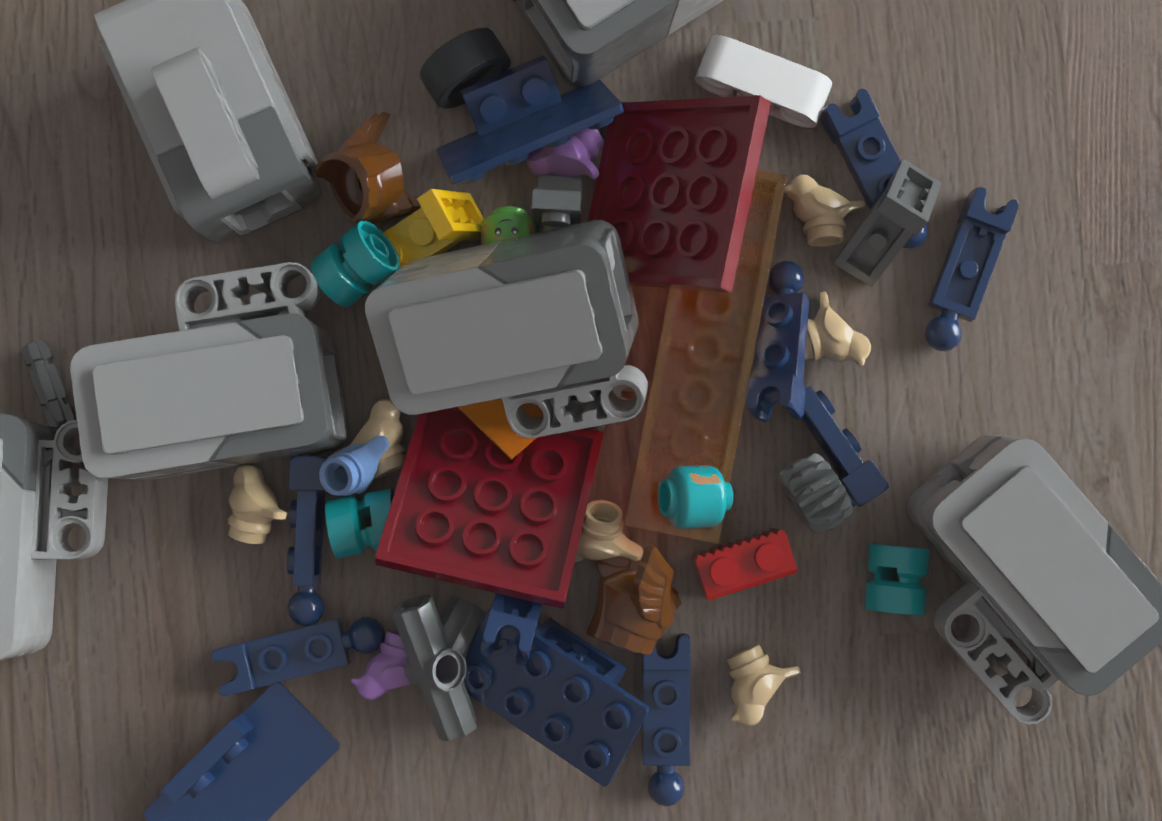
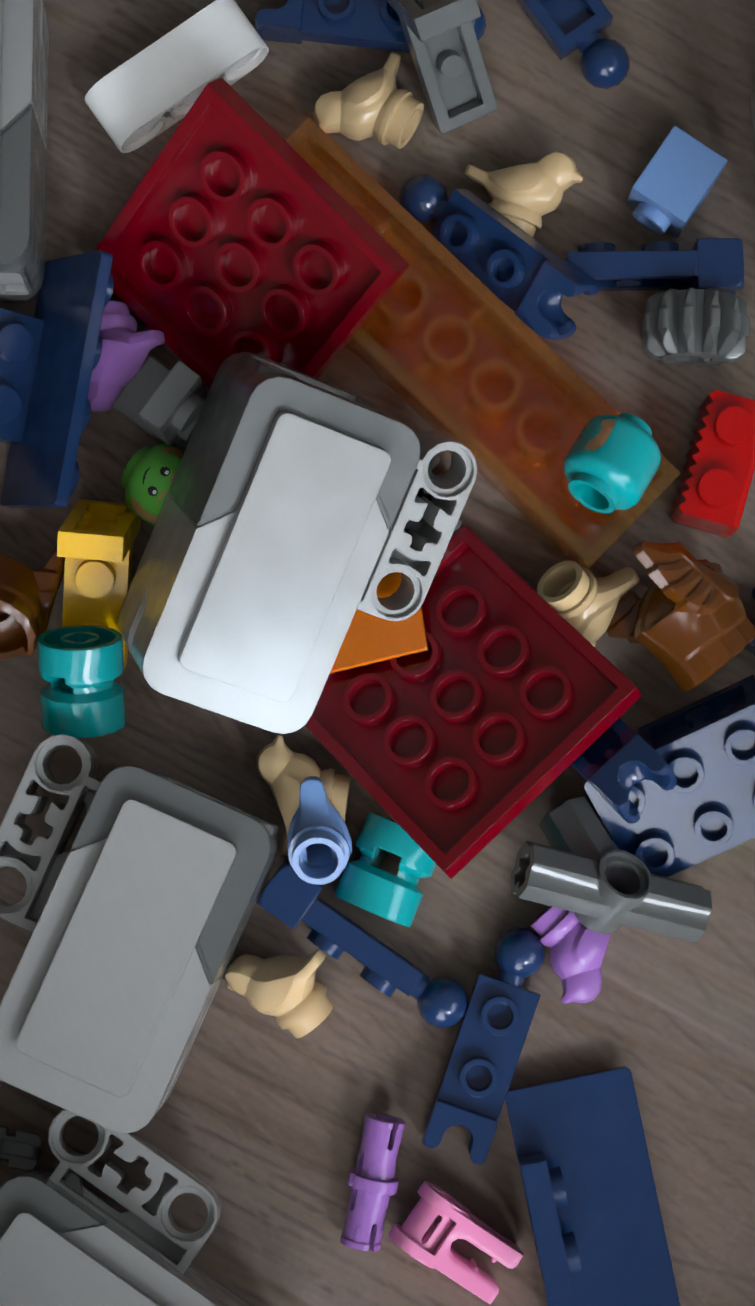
camera: 50 degrees left, 0 degrees up
(171, 635) = (372, 1182): none -> medium lavender pin
(172, 692) = (437, 1223): none -> bright pink piece
(897, 423) = (674, 183): none -> medium blue brick

